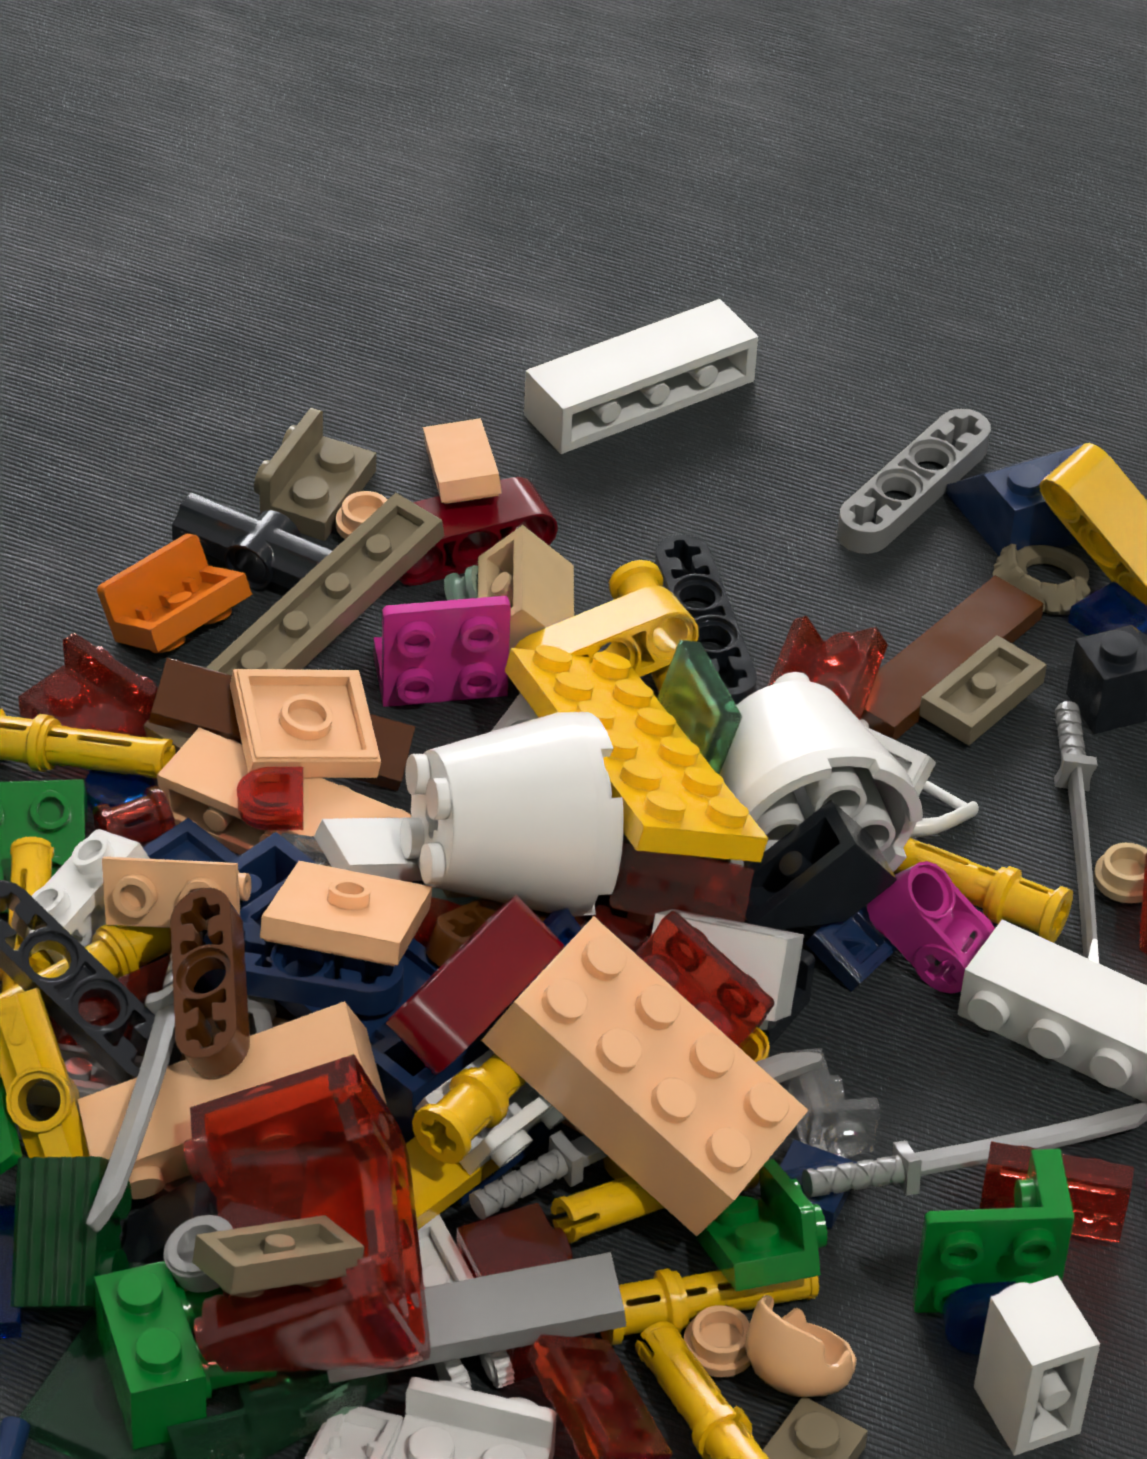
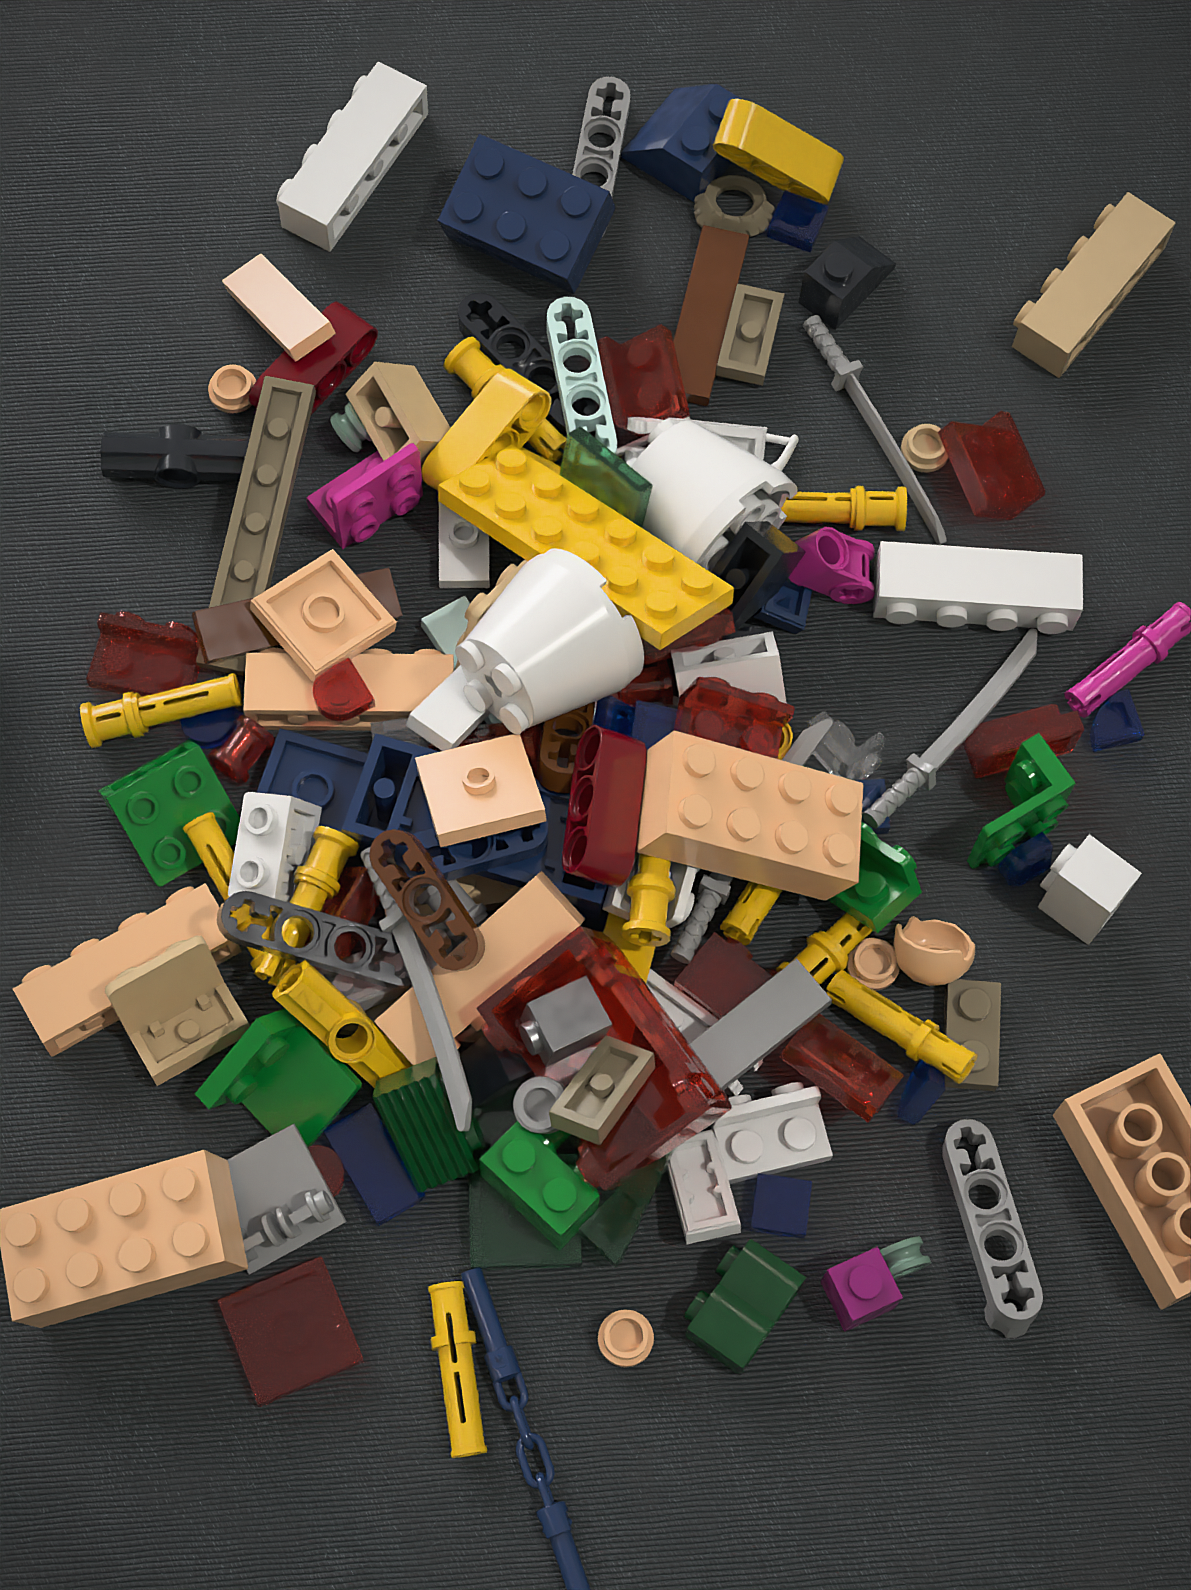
camera: 30 degrees left, 25 degrees up
(149, 889) = (333, 835): light nougat hinge -> none
(169, 596) = (142, 535): orange bracket -> none
(281, 1171) = (564, 1021): none -> flat silver brick
(312, 476) = (173, 370): dark tan bracket -> none
(752, 651) = (584, 384): none -> light aqua beam
(793, 482) = (527, 213): none -> dark blue brick

